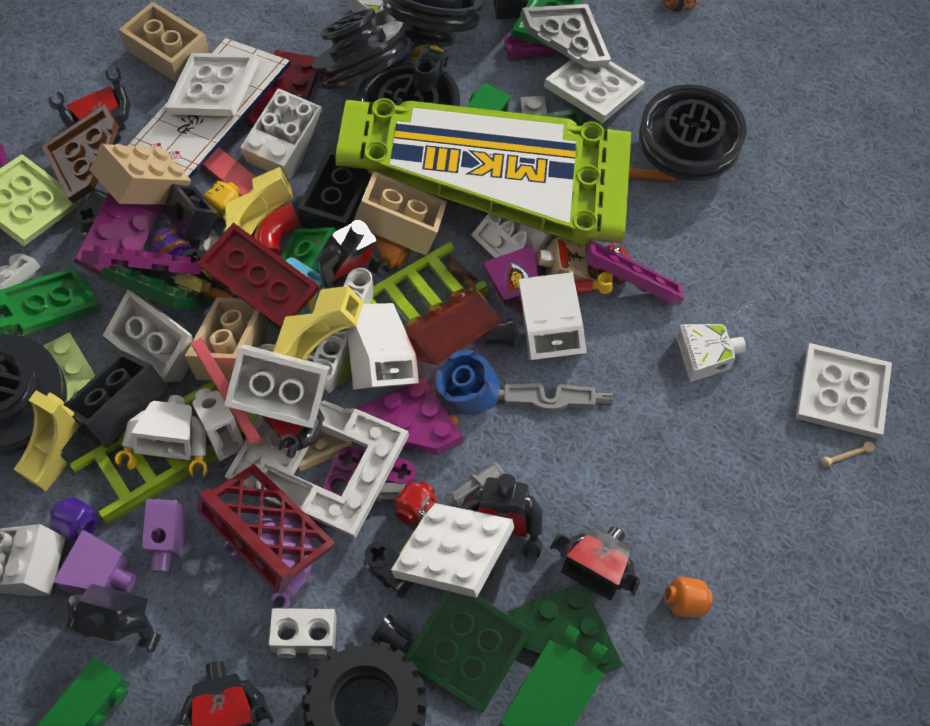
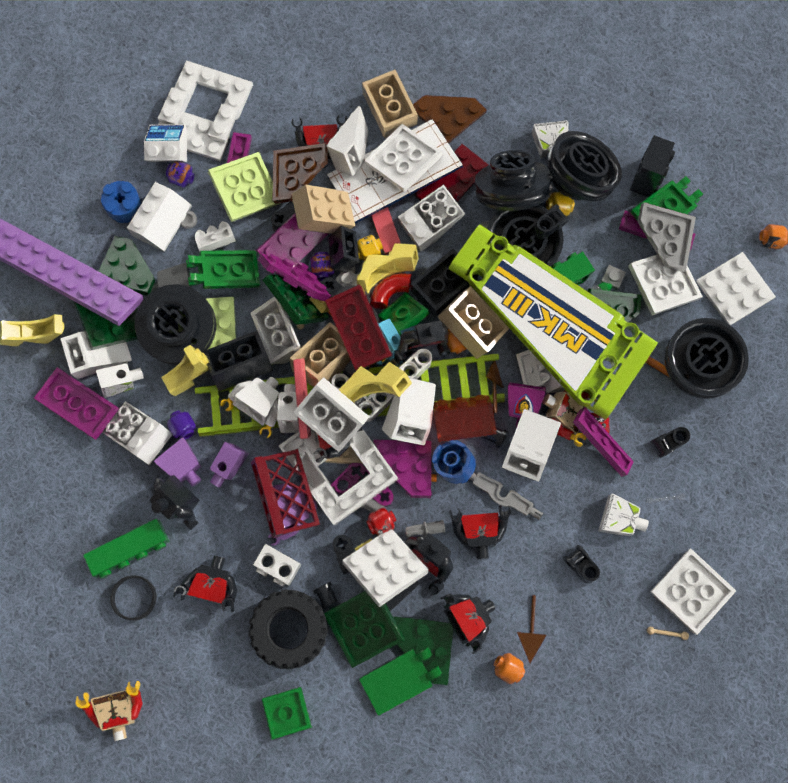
camera: 30 degrees right, 15 degrees up
(136, 100) = (349, 144): none -> white slope
(248, 25) = (449, 113): none -> reddish brown plate
(549, 448) = (480, 530): none -> torso
(674, 59) = (735, 289): none -> white plate
(693, 552) = (530, 641): none -> reddish brown piece
(696, 426) = (581, 564): none -> black piece
(708, 243) = (668, 443): none -> black piece

